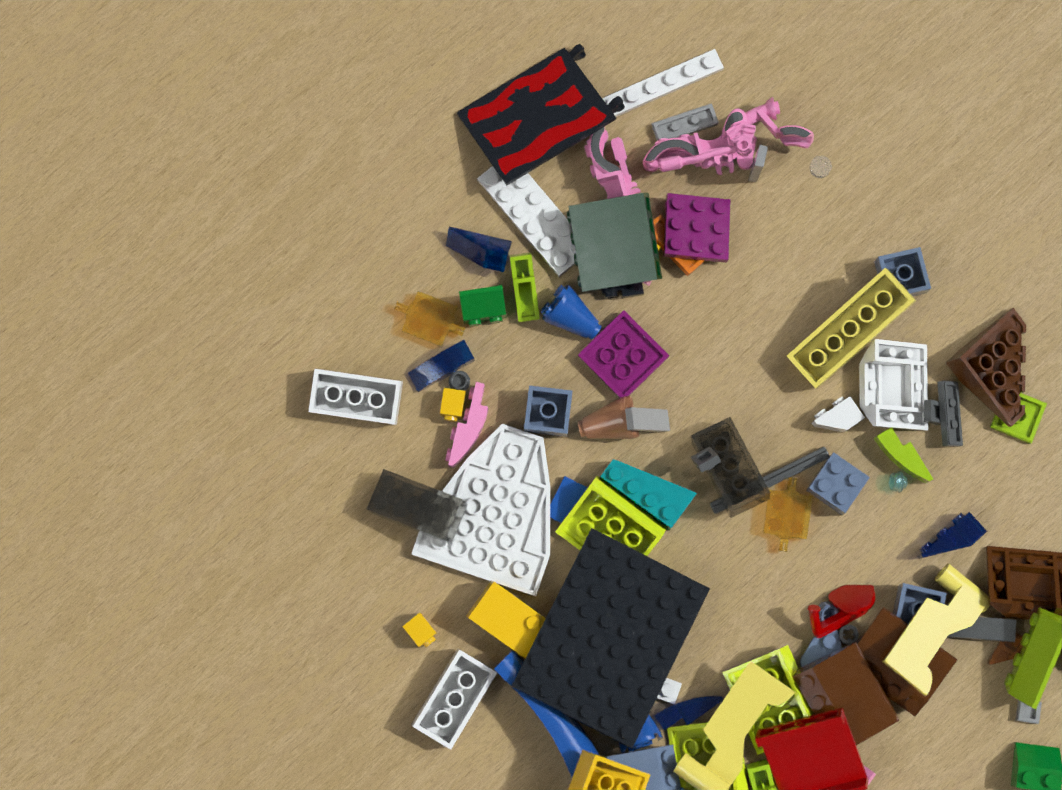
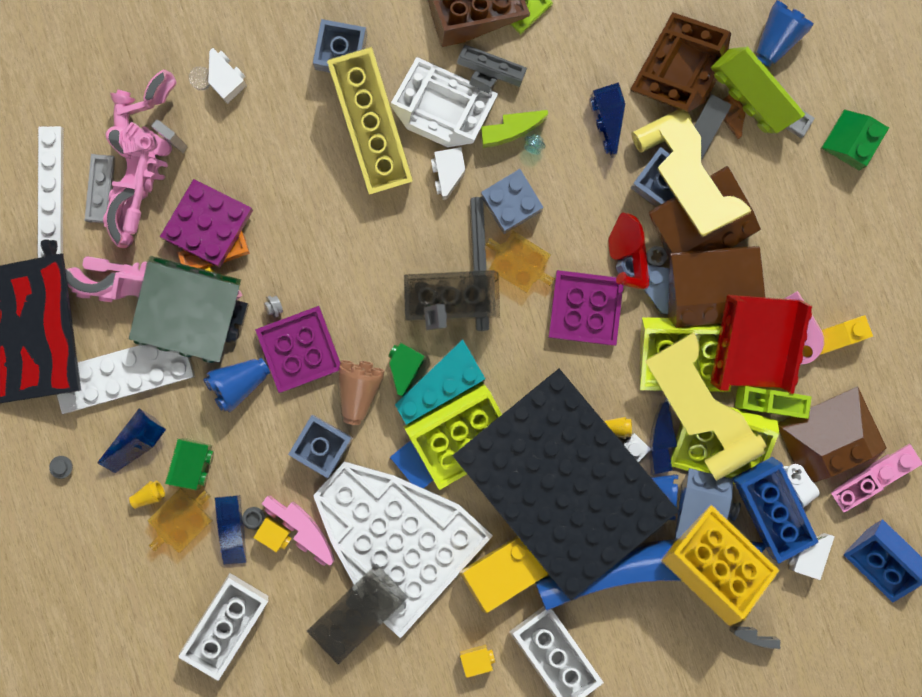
camera: 70 degrees left, 5 degrees up
(431, 197) = (61, 467): none -> dark grey plate
(440, 282) = (148, 494): none -> yellow cone
(524, 287) = (189, 415): lime slope -> none
(647, 419) = (371, 355): light grey tile -> none
(650, 453) = (404, 366): none -> green slope
(651, 316) = (273, 306): none -> light grey plate
(681, 668) = (620, 426): none -> yellow cone
(773, 591) = (585, 308): none -> magenta plate
(830, 185) = (223, 77): none -> white slope

